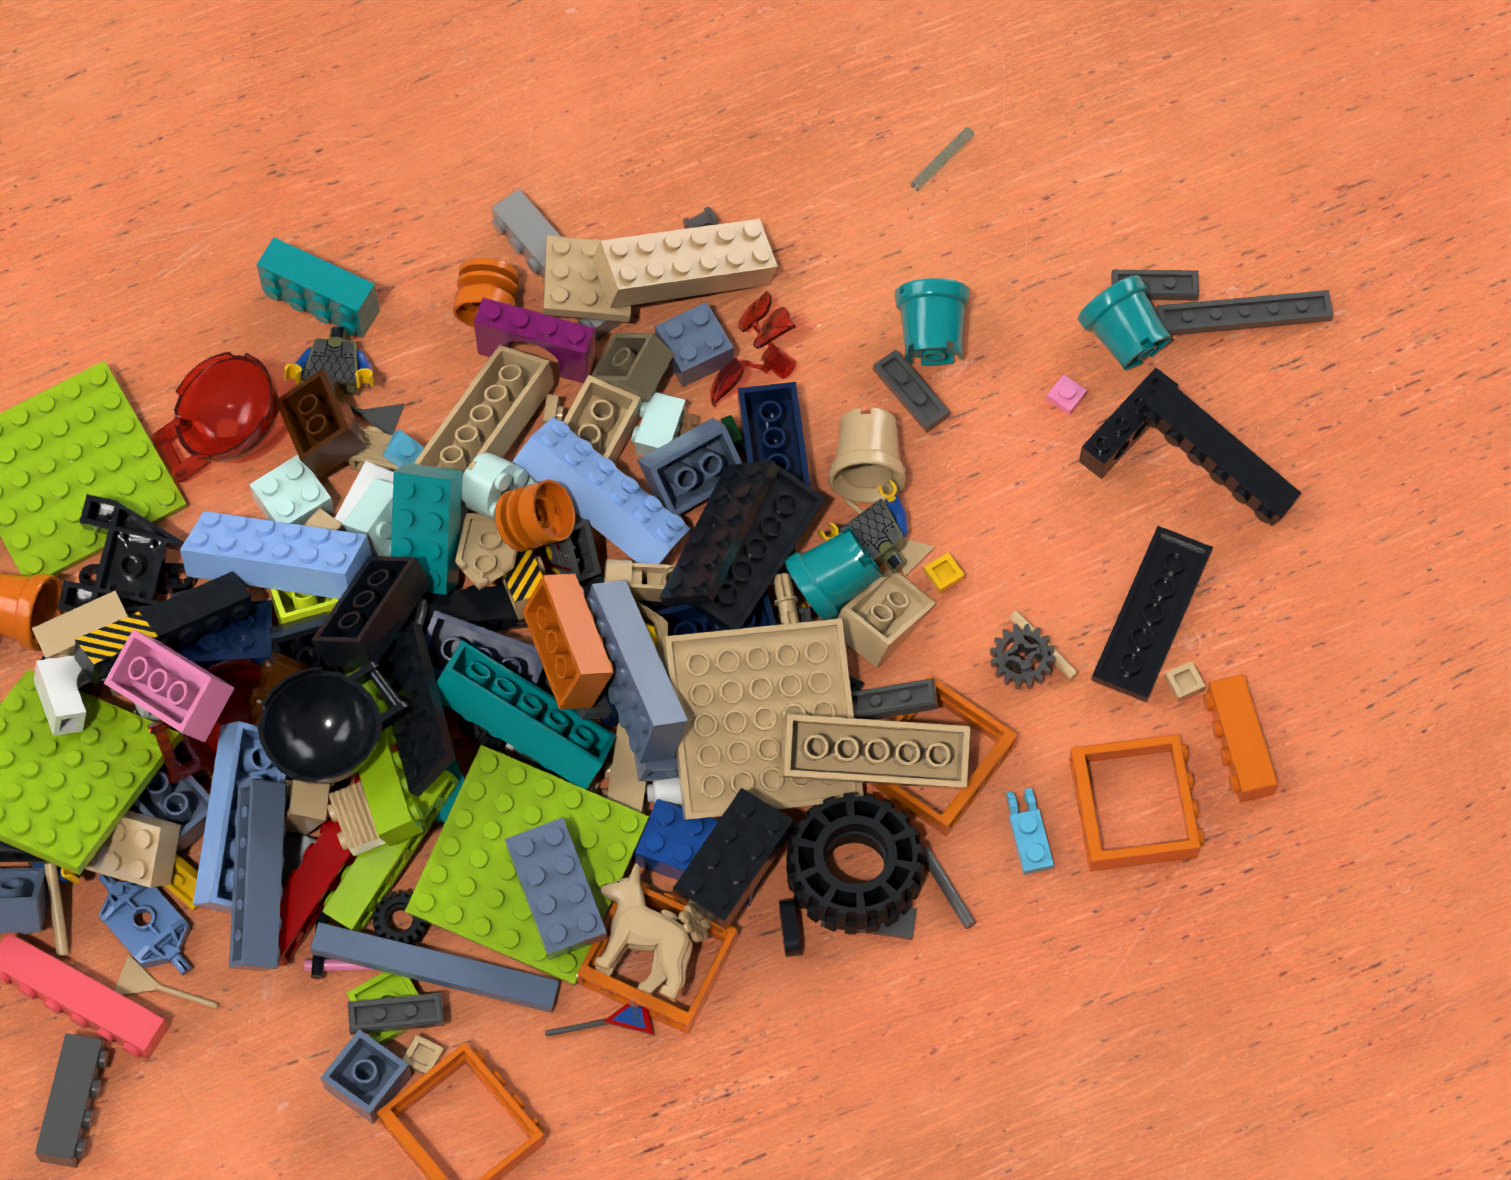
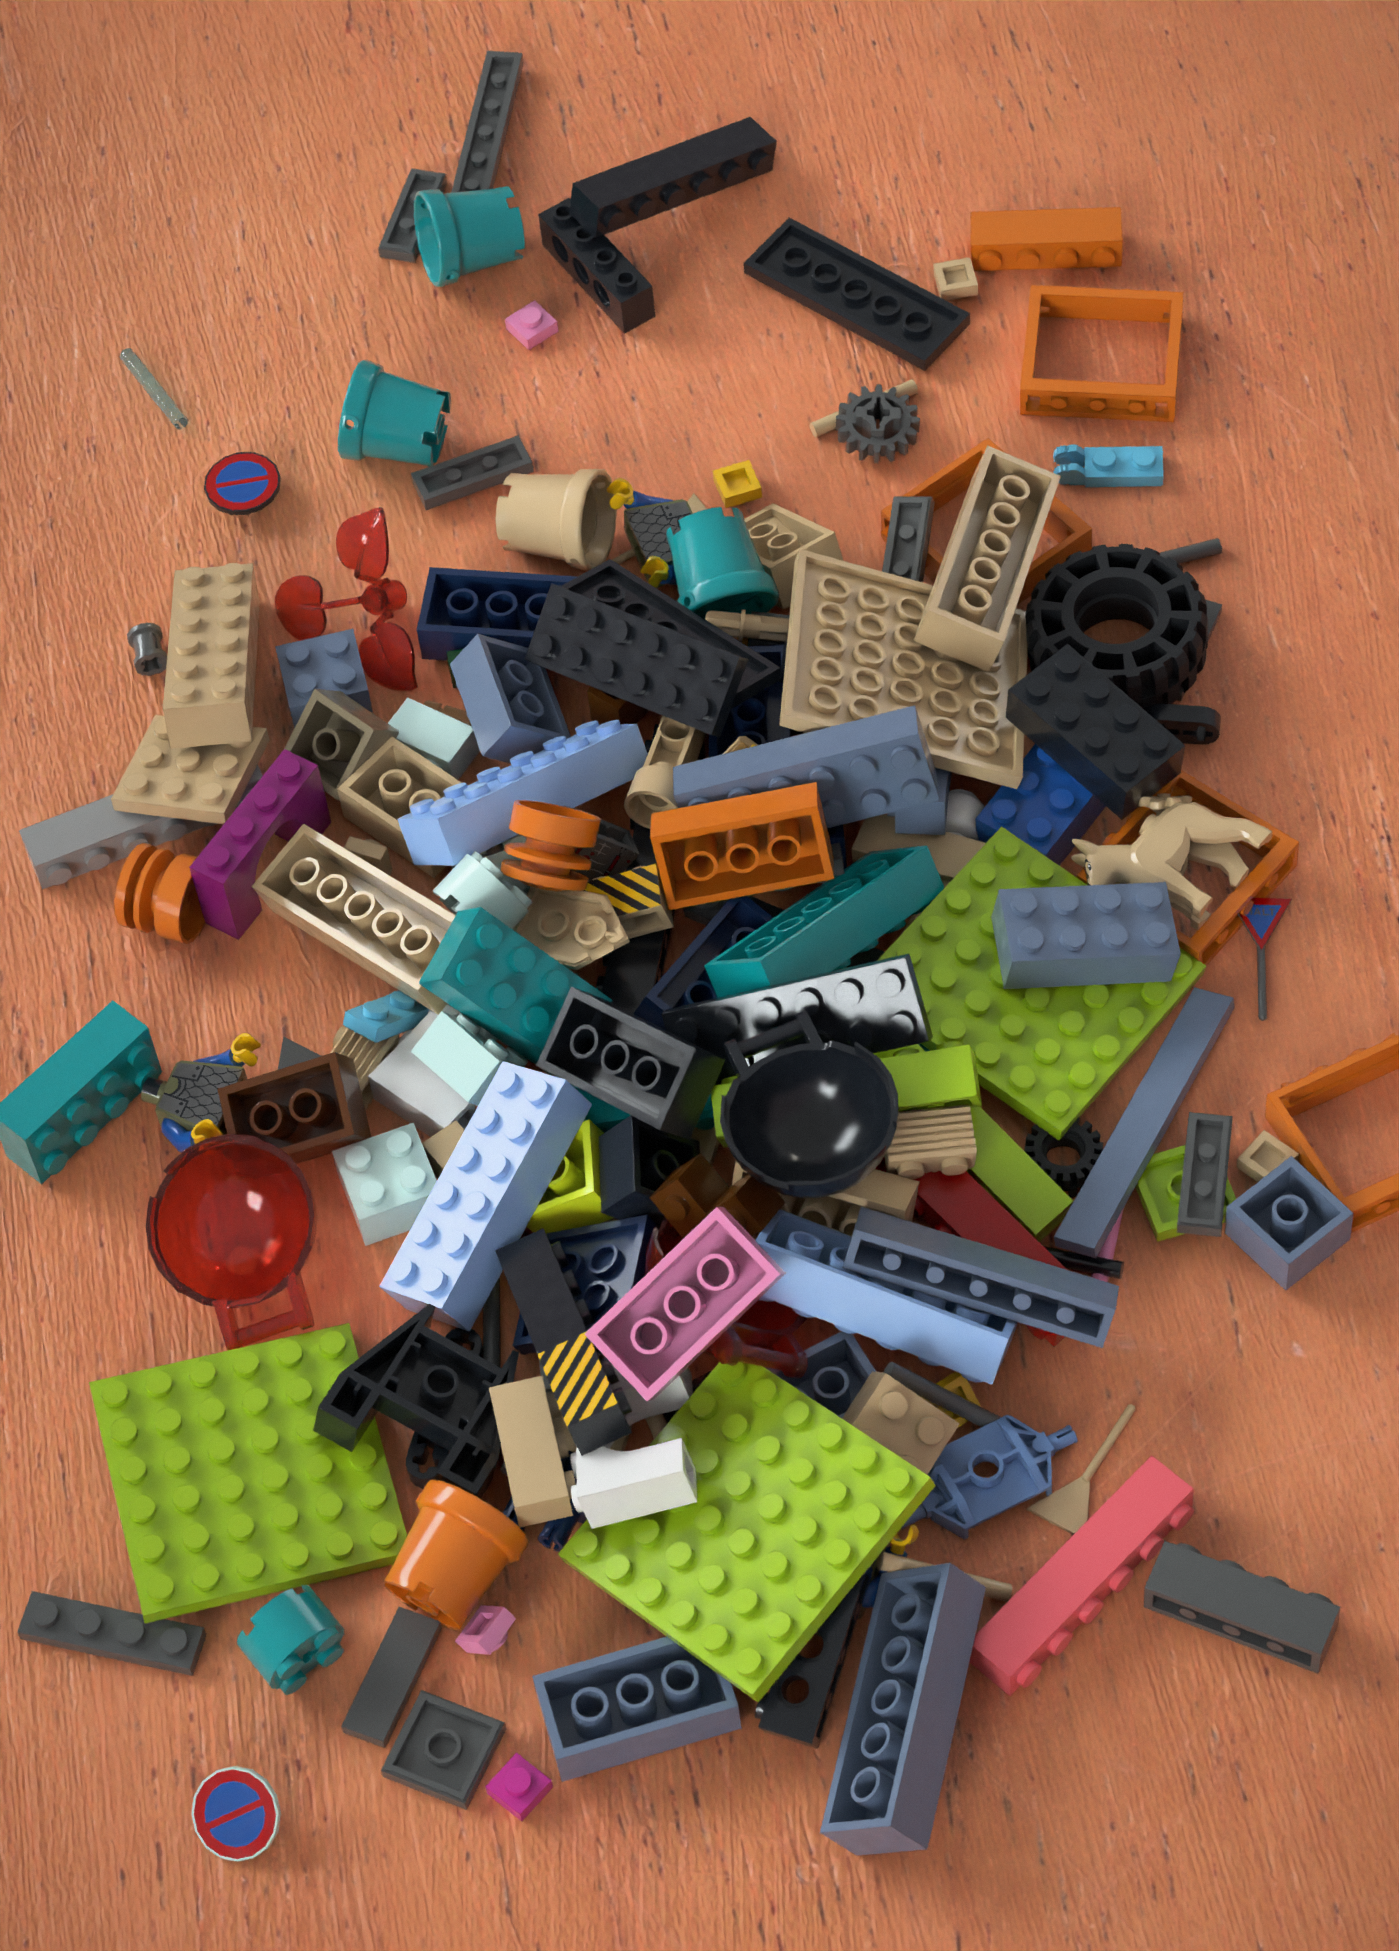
camera: 70 degrees left, 10 degrees down
(183, 875) = (940, 1396): none -> dark grey bar
(860, 241) = (242, 483): none -> piece

